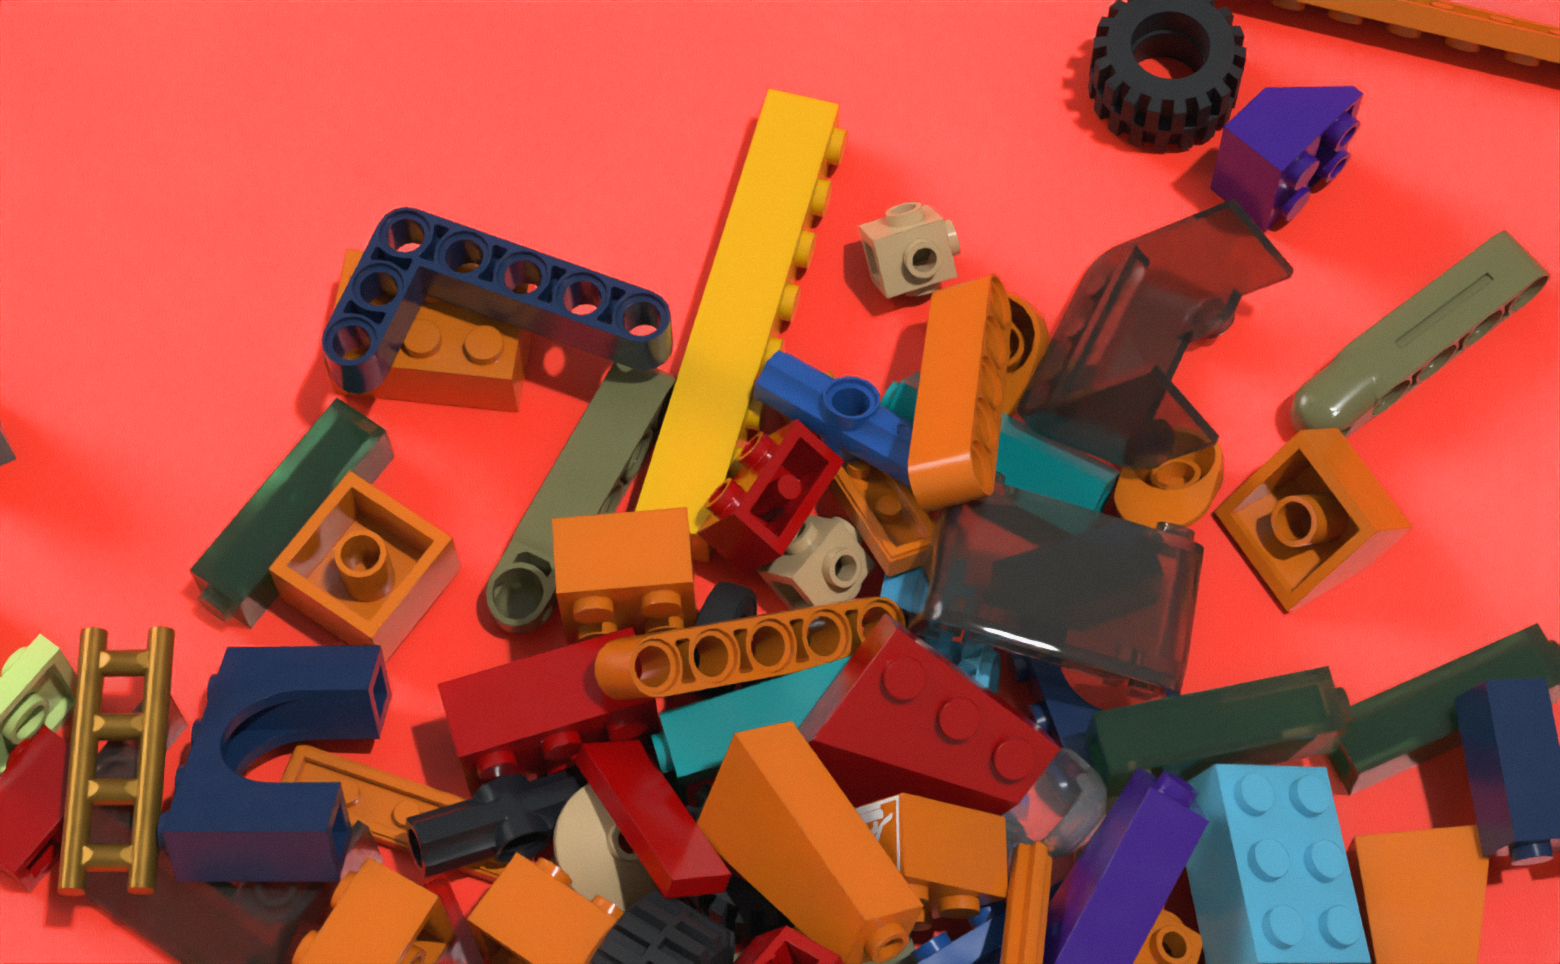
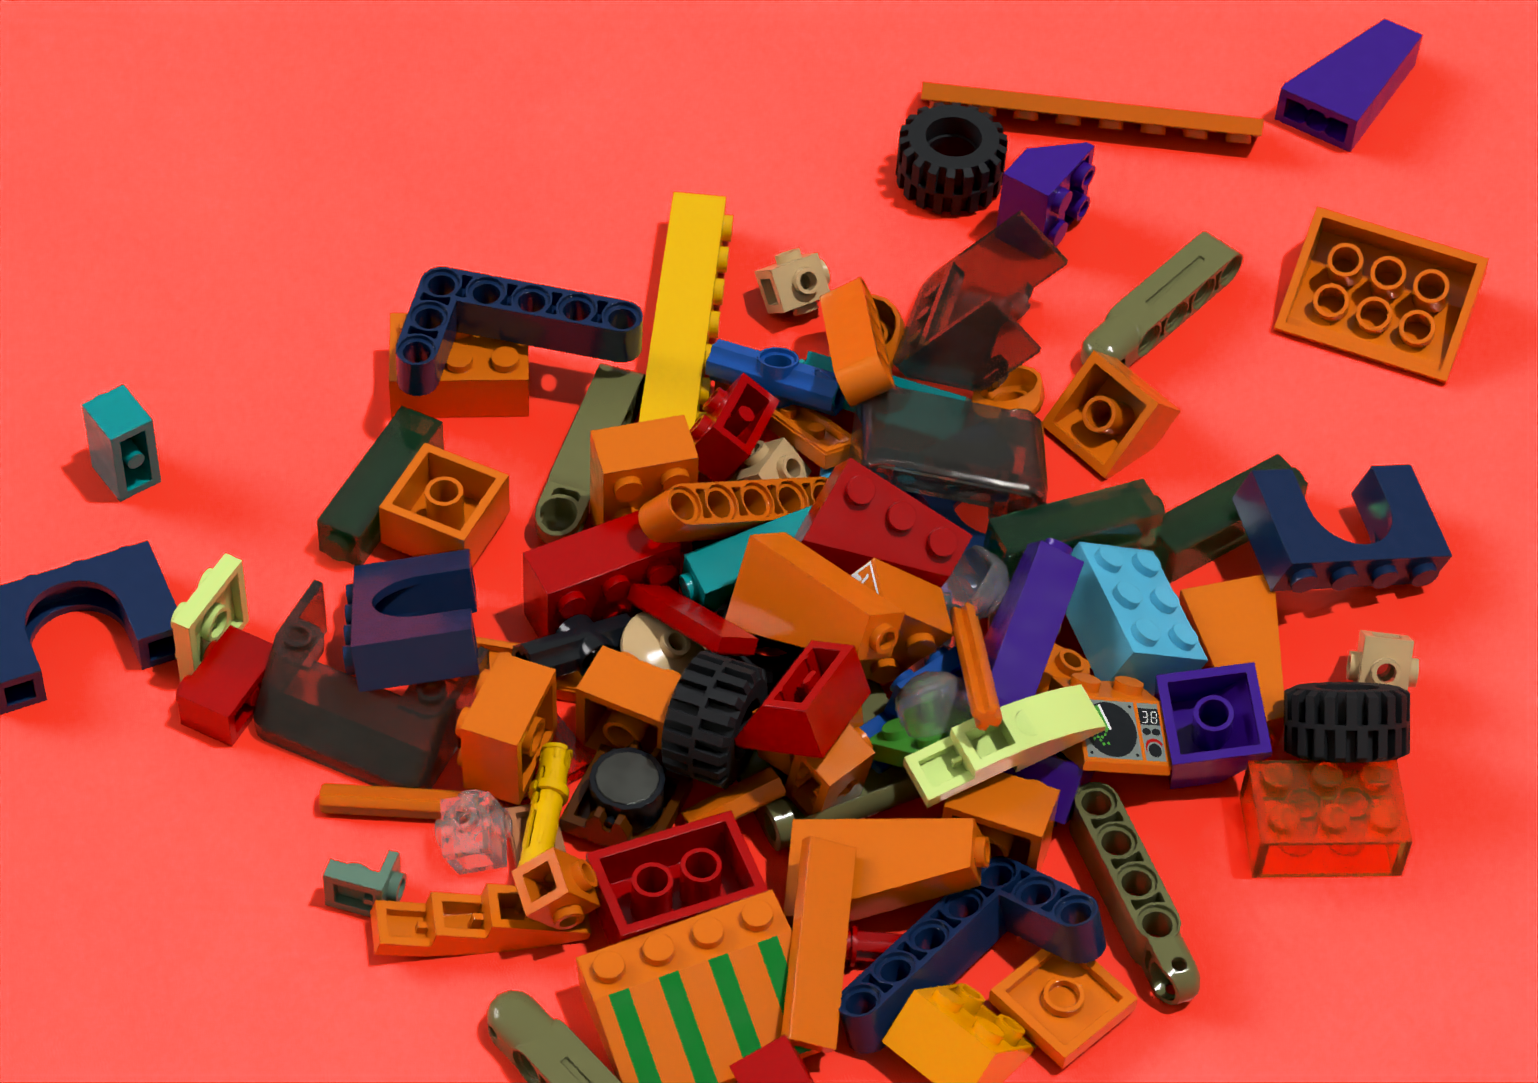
camera: 15 degrees left, 15 degrees down
(145, 790) = (282, 643): pearl gold bar -> none

